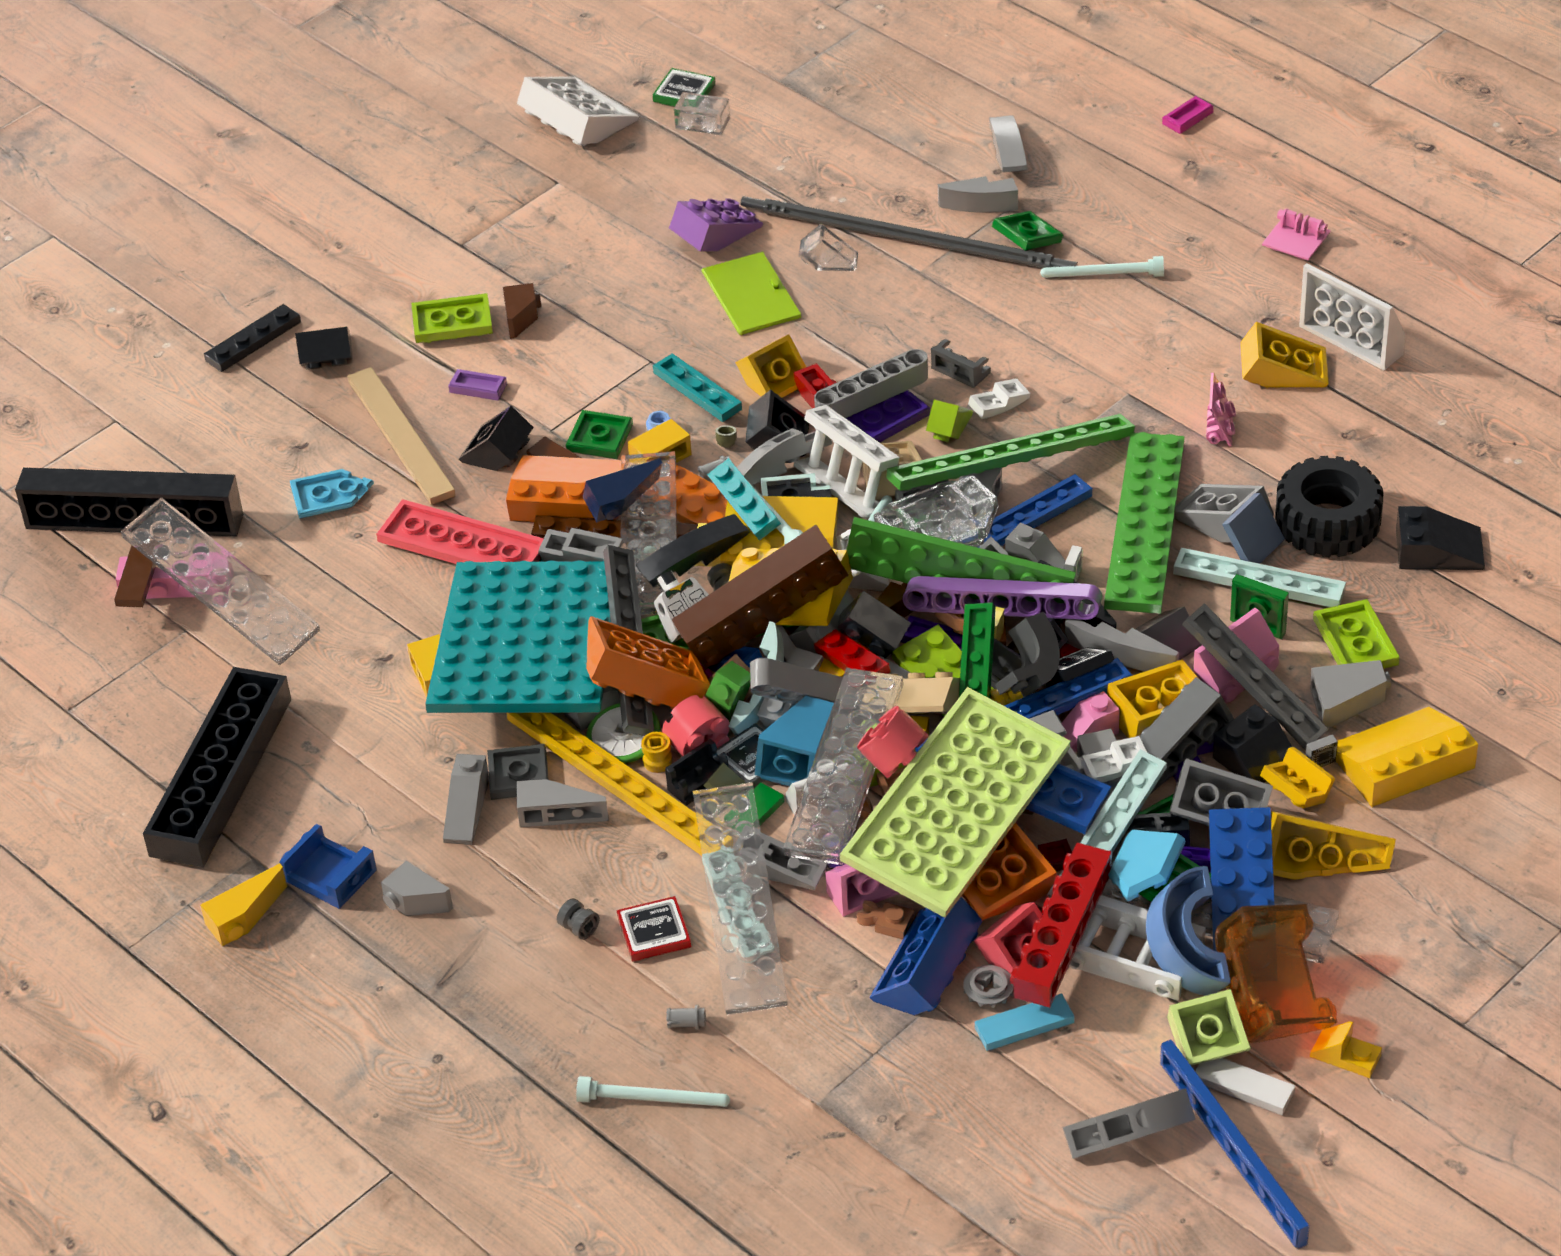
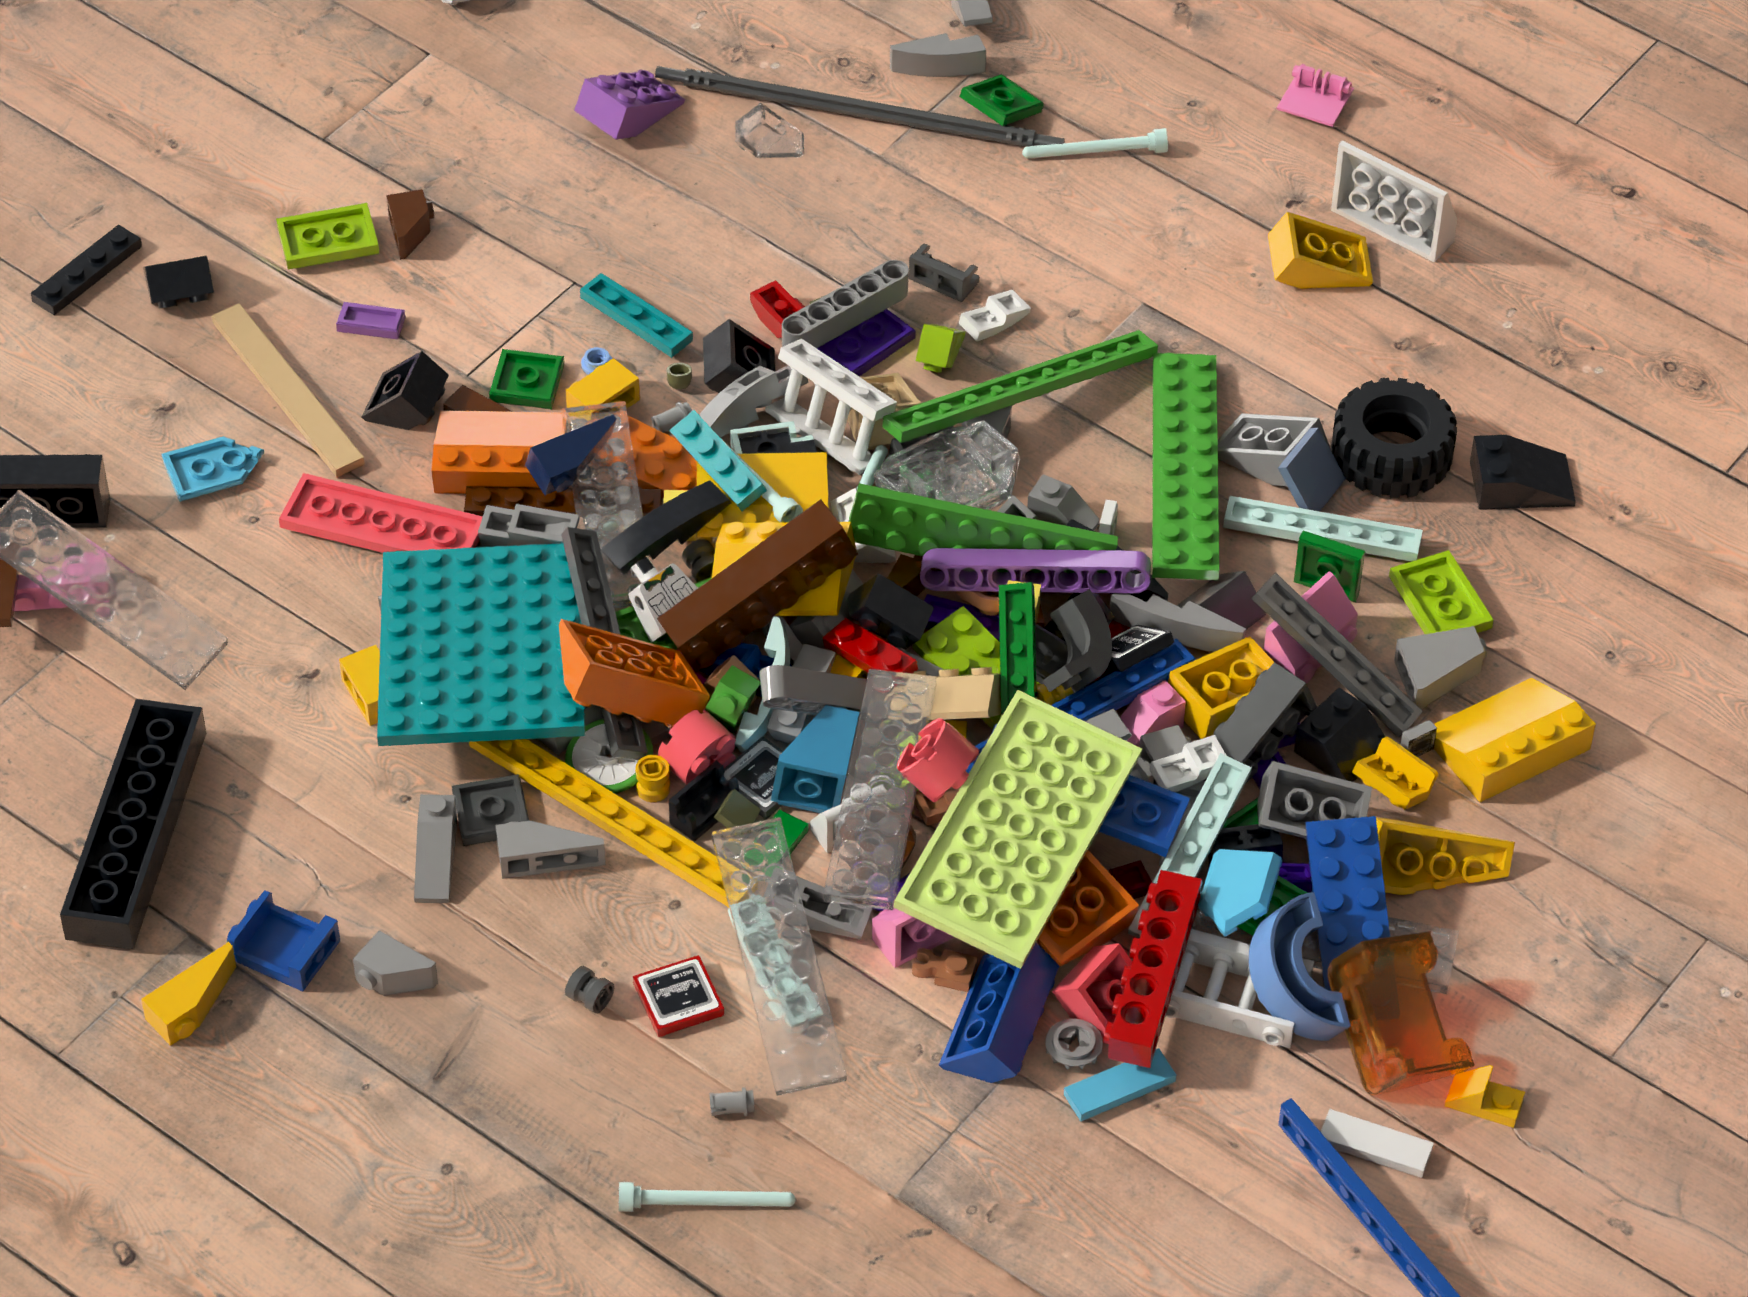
camera: 10 degrees left, 5 degrees up
(751, 293) = (683, 190): lime container -> none
(772, 367) = (723, 287): yellow slope -> none
(1041, 507) = (1063, 451): blue plate -> none
(1129, 1123) = (1254, 1200): light grey slope -> none
(1207, 1027) = (1330, 1082): yellowish green slope -> none
(1220, 414) = (1253, 328): bright pink hinge -> none

